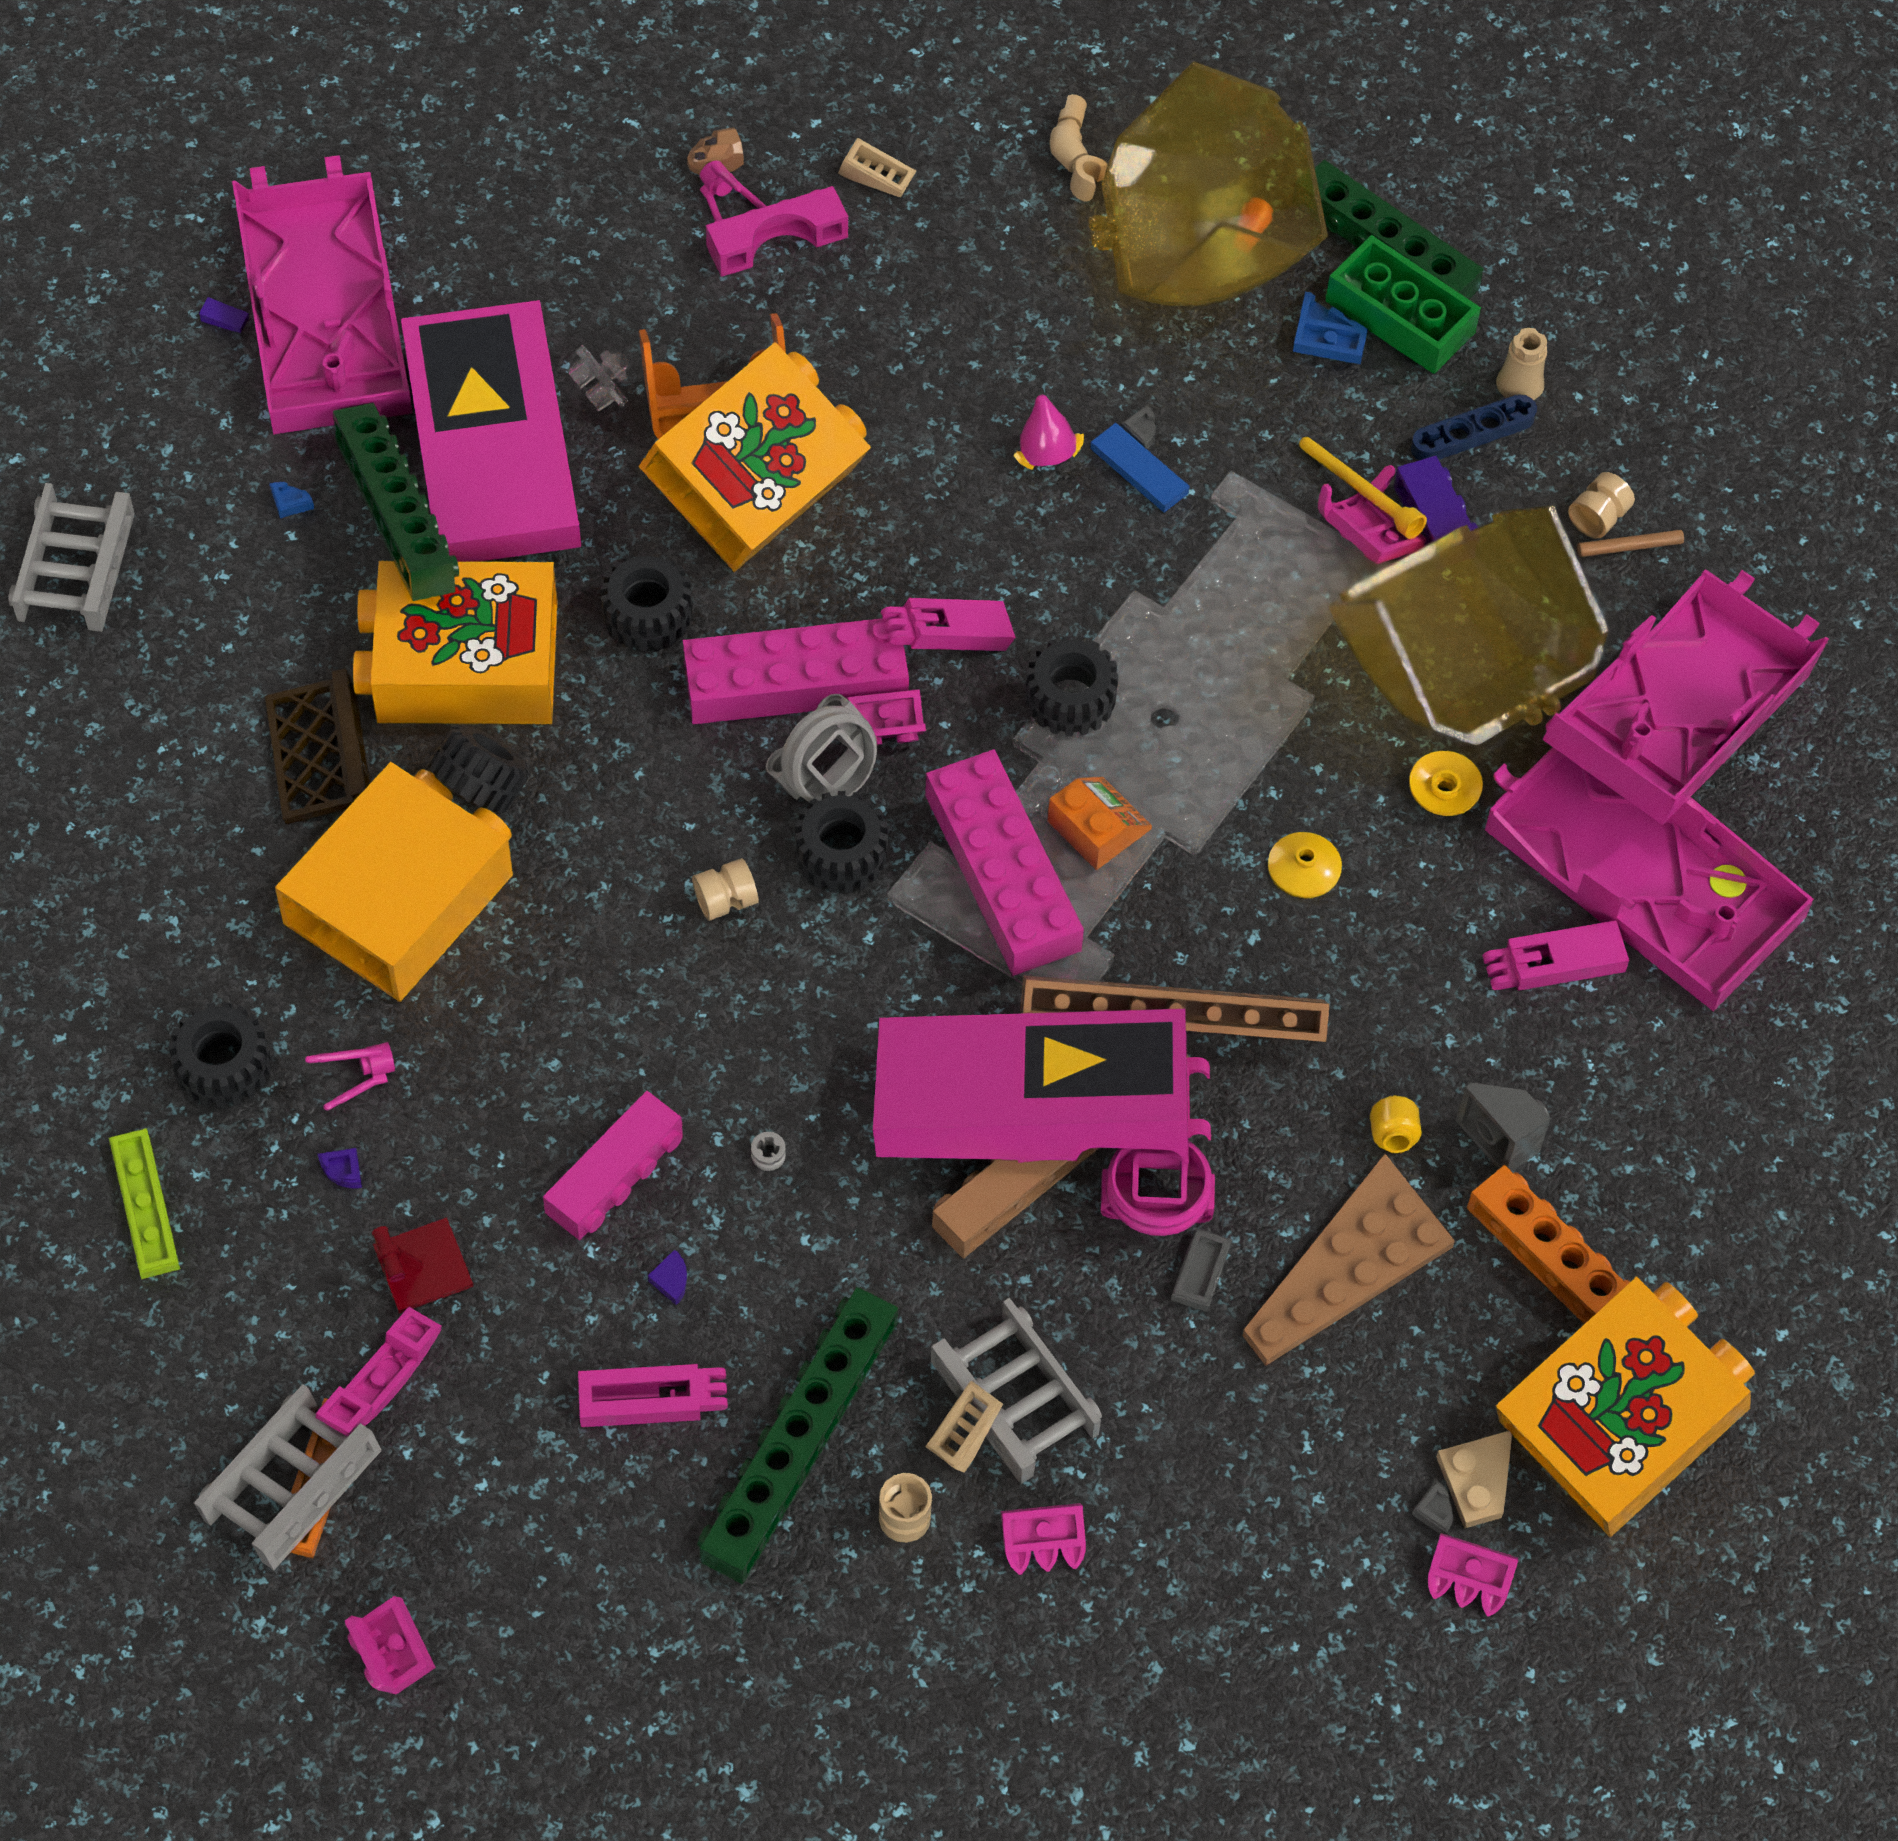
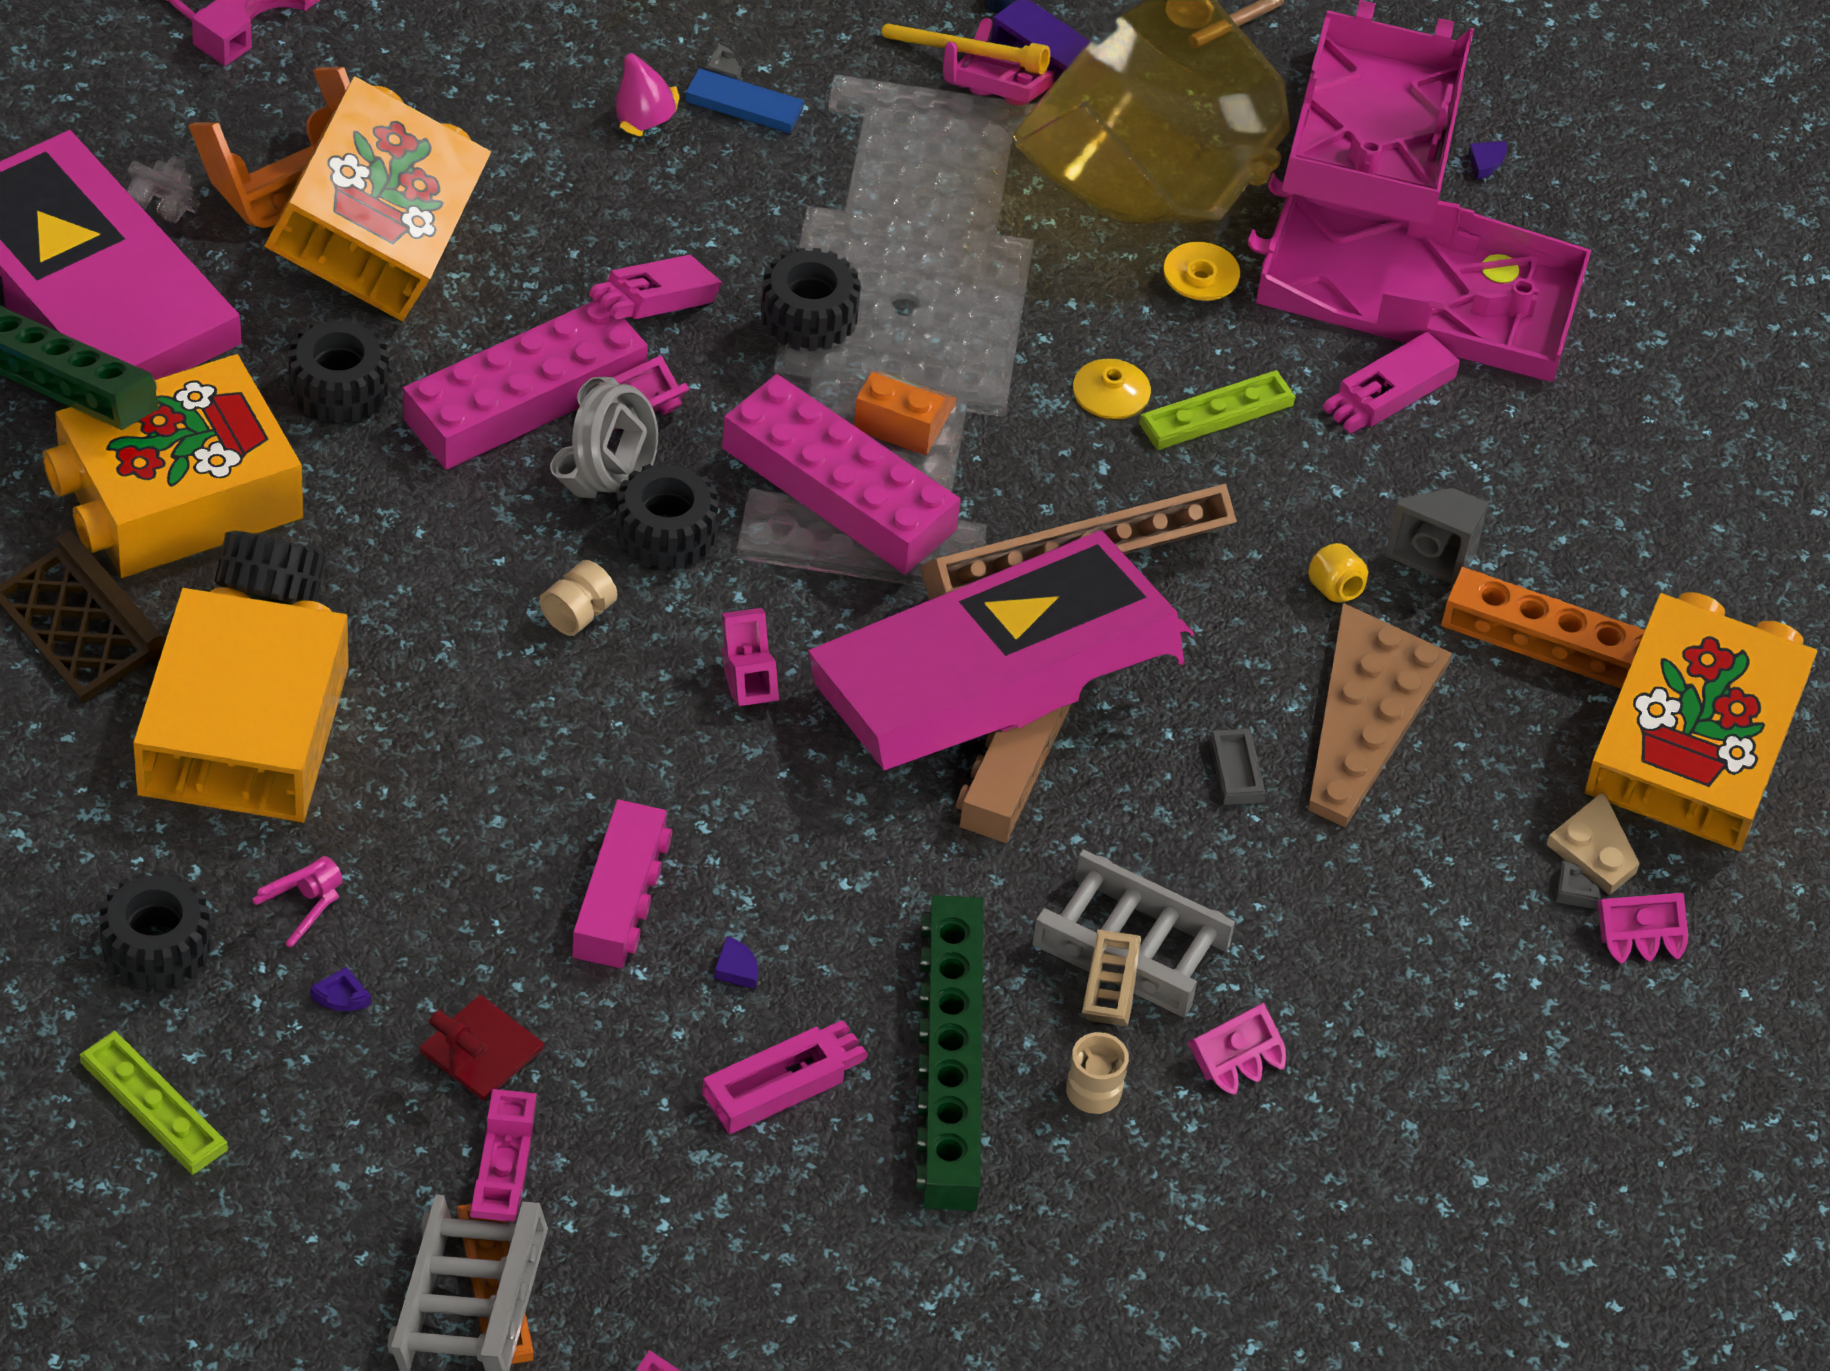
camera: 30 degrees left, 10 degrees down
(768, 1163) = (770, 809): light grey bush -> none
(833, 1003) = (746, 658): none -> dark pink brick
(1156, 1214) = (1132, 722): dark pink piece -> none
(1385, 921) = (1216, 410): none -> lime tile
(1783, 766) = (1487, 157): none -> dark purple tile

